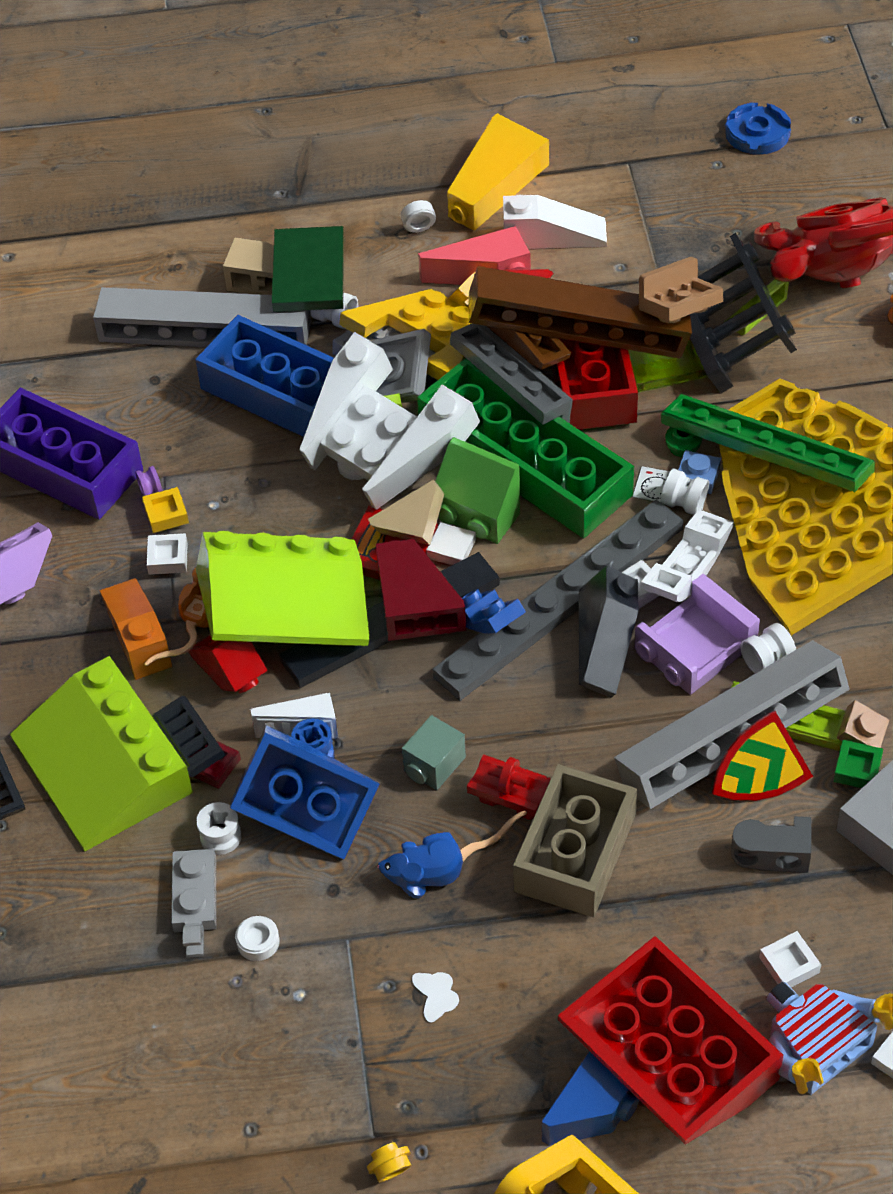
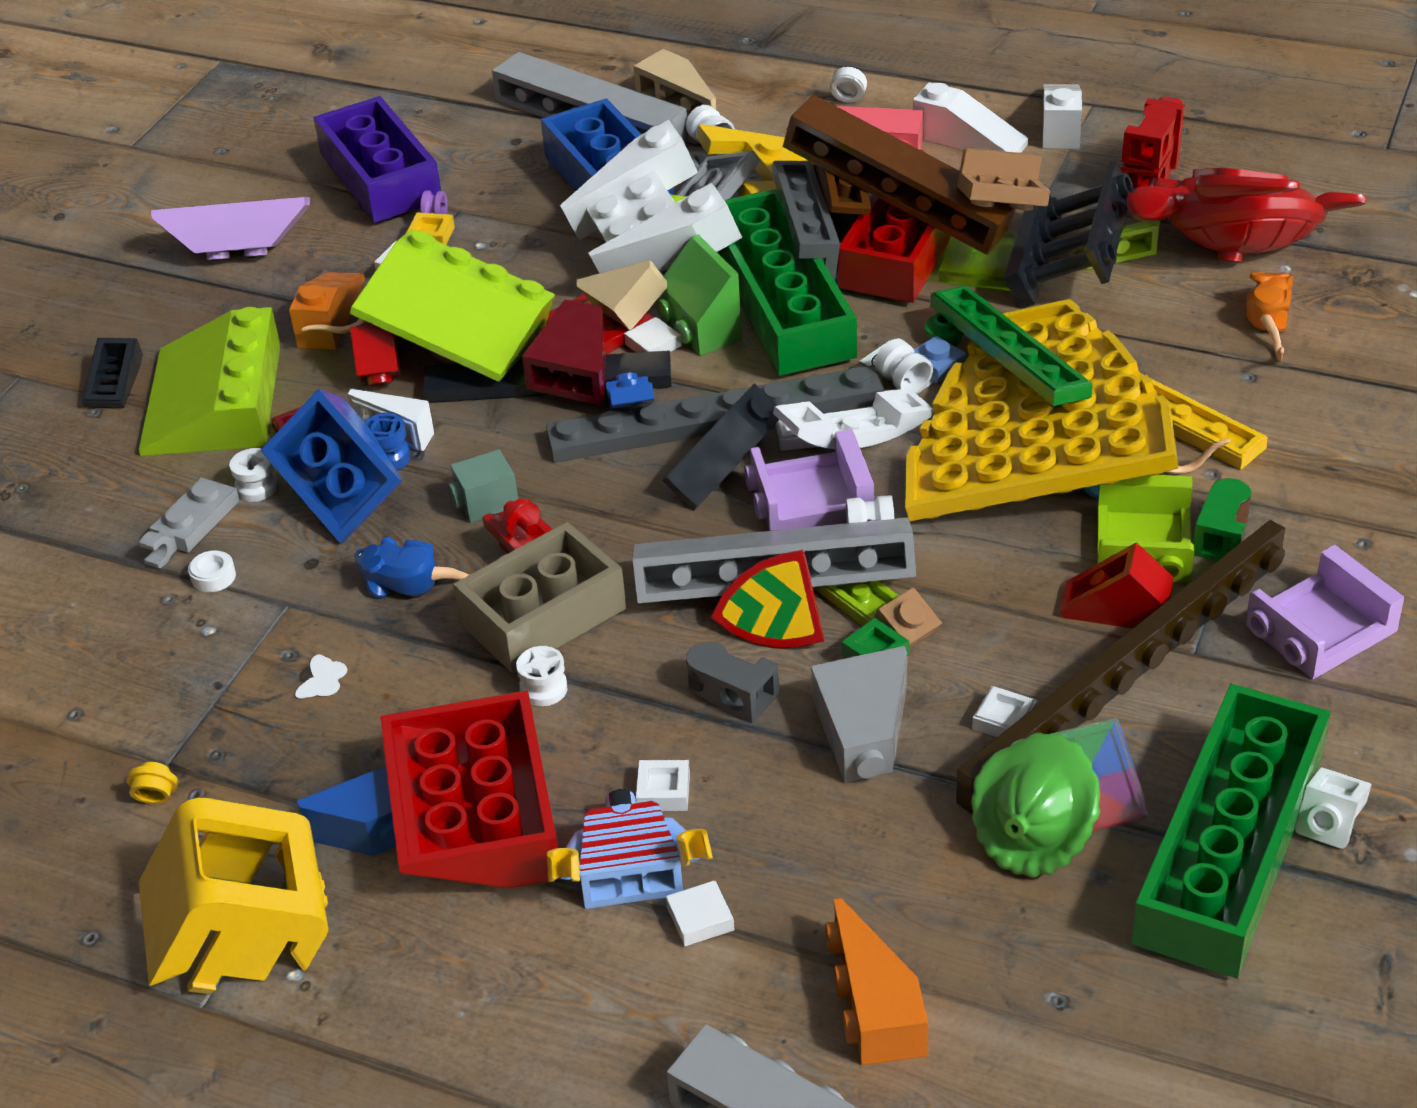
camera: 30 degrees right, 10 degrees down
(188, 734) = (287, 391): black slope -> none
(308, 269) = (701, 85): dark green tile -> none
(497, 167) = (966, 61): yellow slope -> none
(618, 182) = (1062, 116): none -> white slope
(624, 898) = (542, 675): none -> white wheel
(729, 197) = (1154, 145): none -> red hips
(758, 128) = (1246, 111): blue tile -> none

